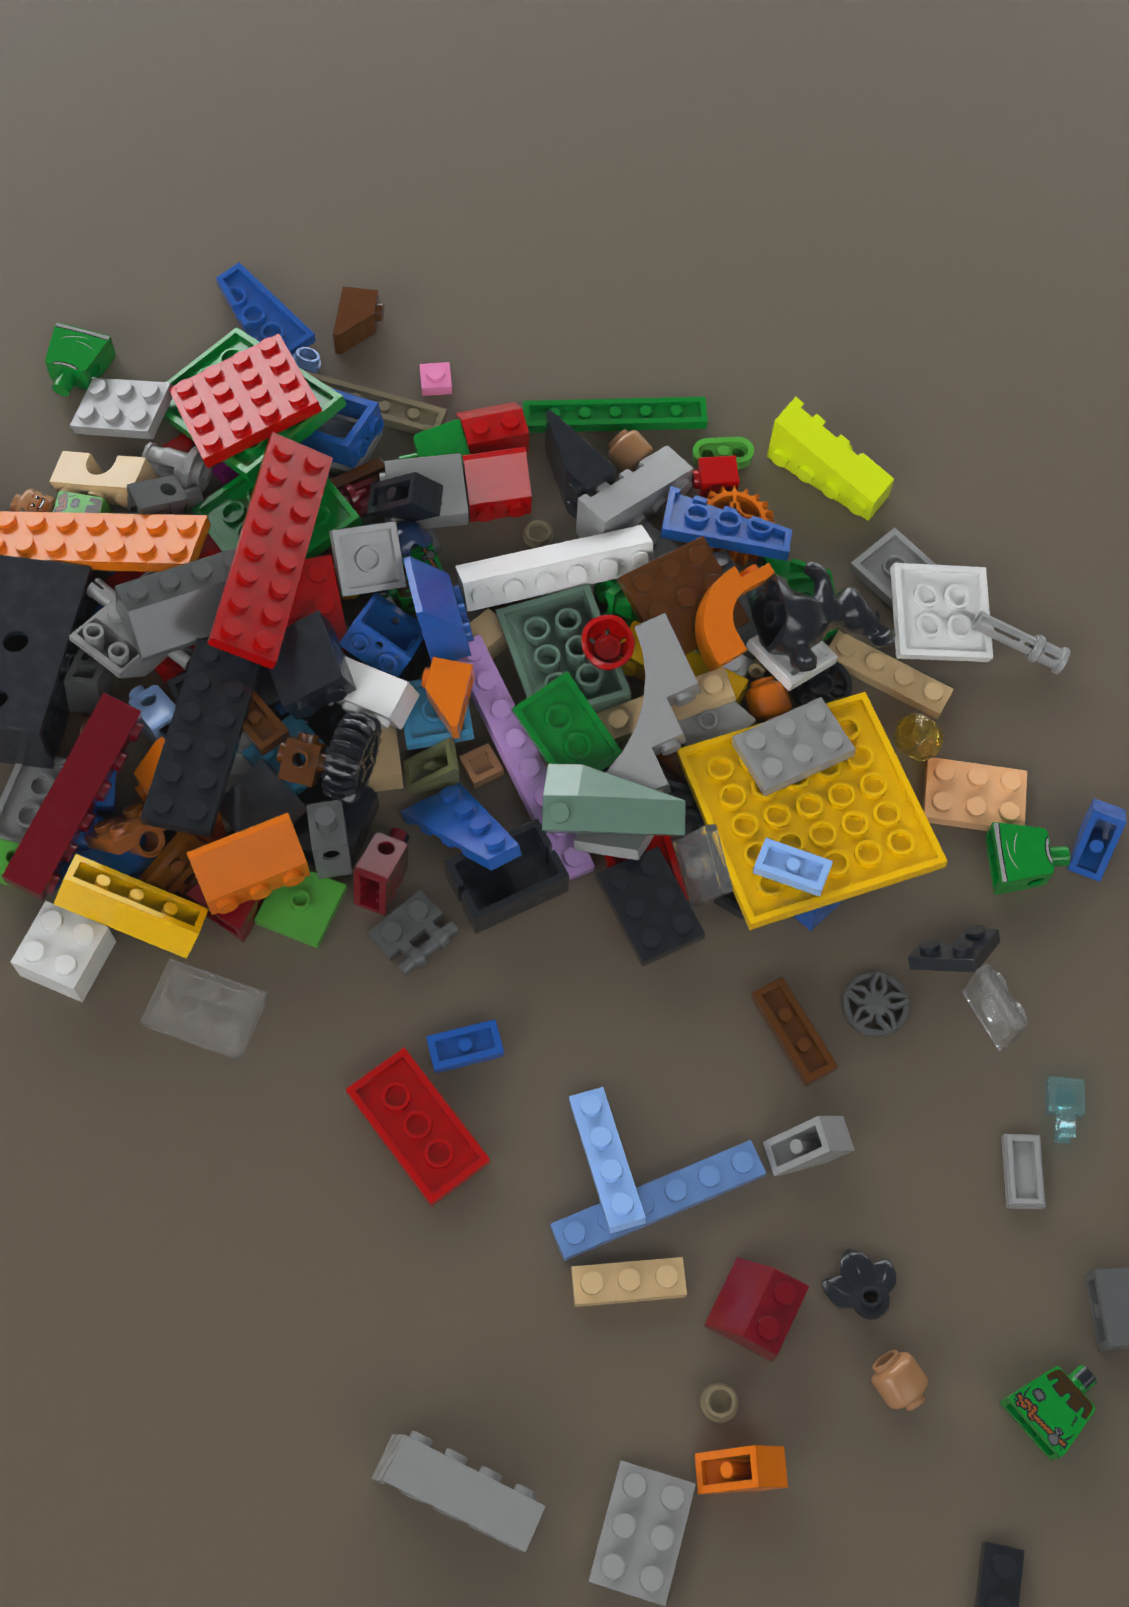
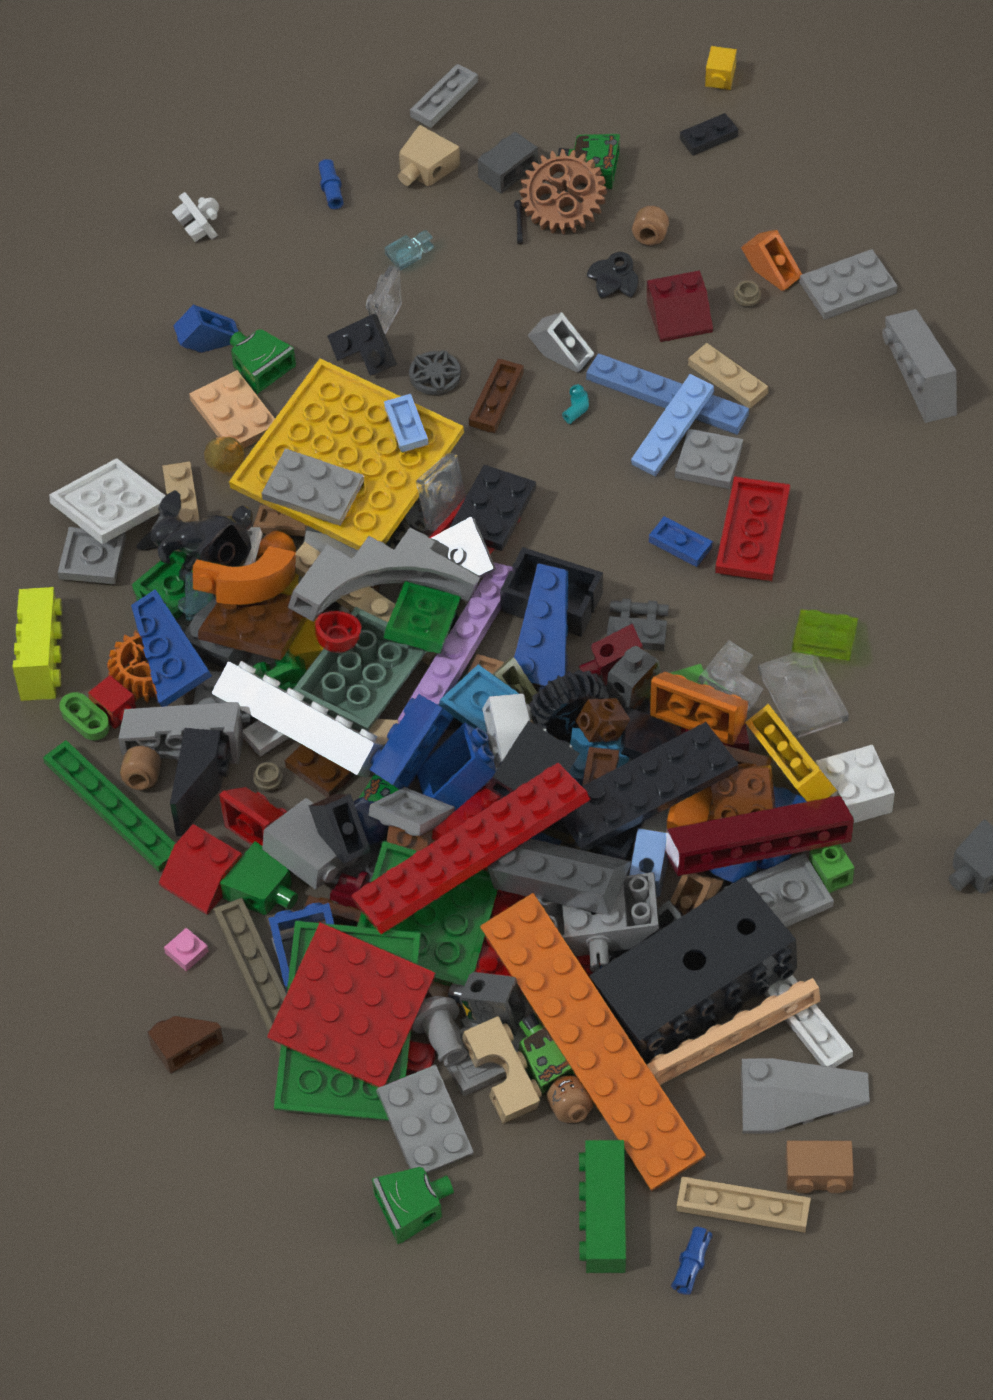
camera: 125 degrees left, 10 degrees down
(237, 1076) = (825, 634): none -> clear neon green plate
(260, 311) = (242, 1105): blue wing -> none
(281, 948) = (725, 674): none -> clear plate
(307, 359) = (255, 1042): medium blue plate -> none
(449, 691) = (465, 684): orange slope -> none
(541, 1166) = (709, 458): none -> light grey plate
(596, 802) = (466, 556): sand green wedge -> none
(716, 1102) = (579, 404): none -> teal arm
(1022, 1324) = (575, 172): none -> nougat gear
(1023, 1171) = (468, 249): light grey tile -> none
(1033, 652) = (88, 439): light grey pin -> none
(1048, 1276) = (518, 206): none -> black hinge

